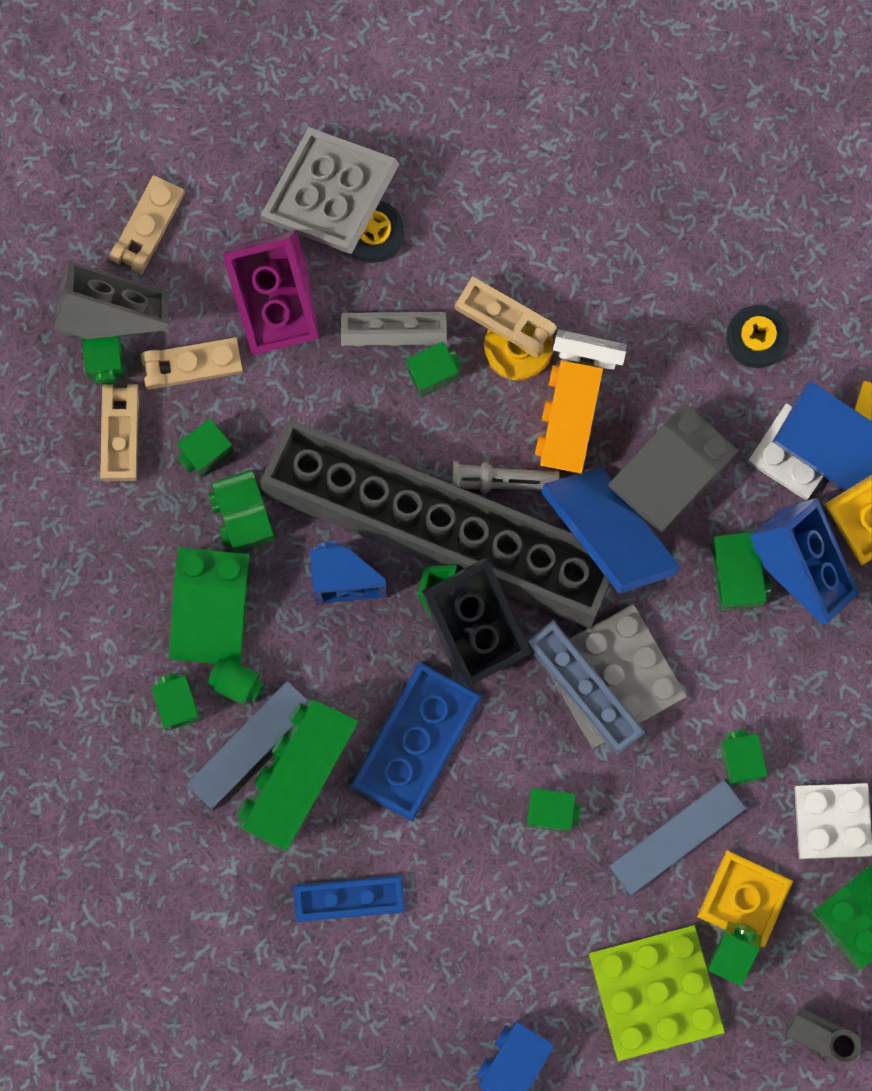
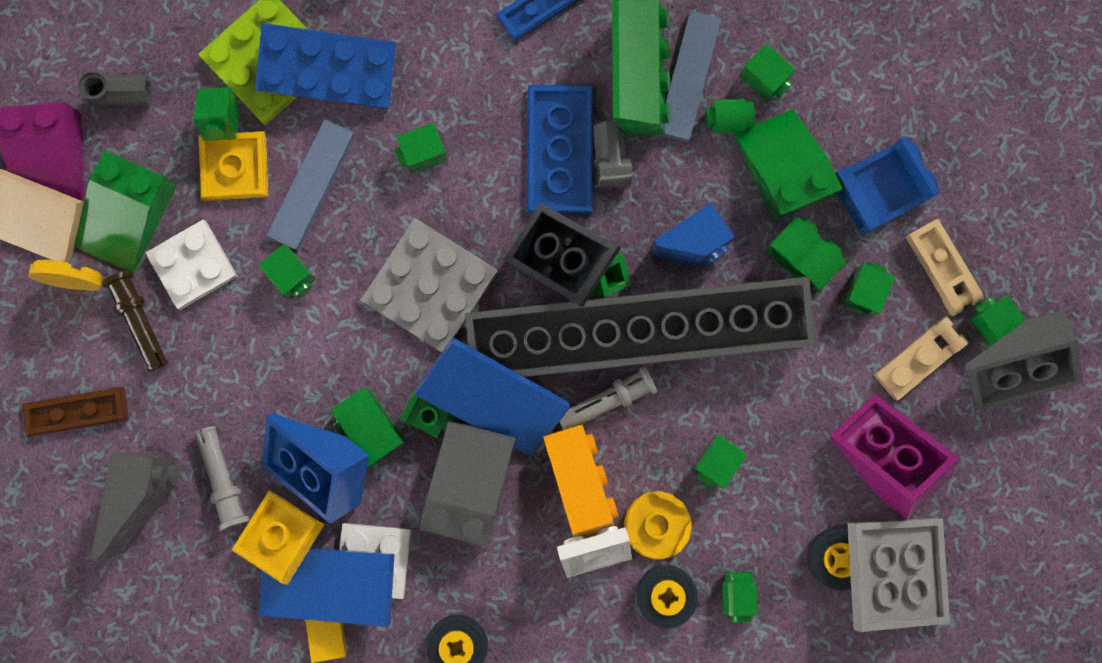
camera: 155 degrees right, 5 degrees up
(129, 536) = (886, 185): none -> blue panel
(147, 224) = (1031, 458): tan plate -> none
(376, 694) = (611, 166): none -> dark grey piece
(393, 328) = (771, 480): light grey plate -> none
(480, 245) = (739, 596): none -> green brick
(504, 316) = (684, 541): tan plate -> none
(539, 291) = (654, 595): none -> black wheel
(585, 688) = (445, 258): sand blue tile -> none
(603, 943) = (325, 66): none -> blue plate
(690, 557) = (414, 416): none -> green brick

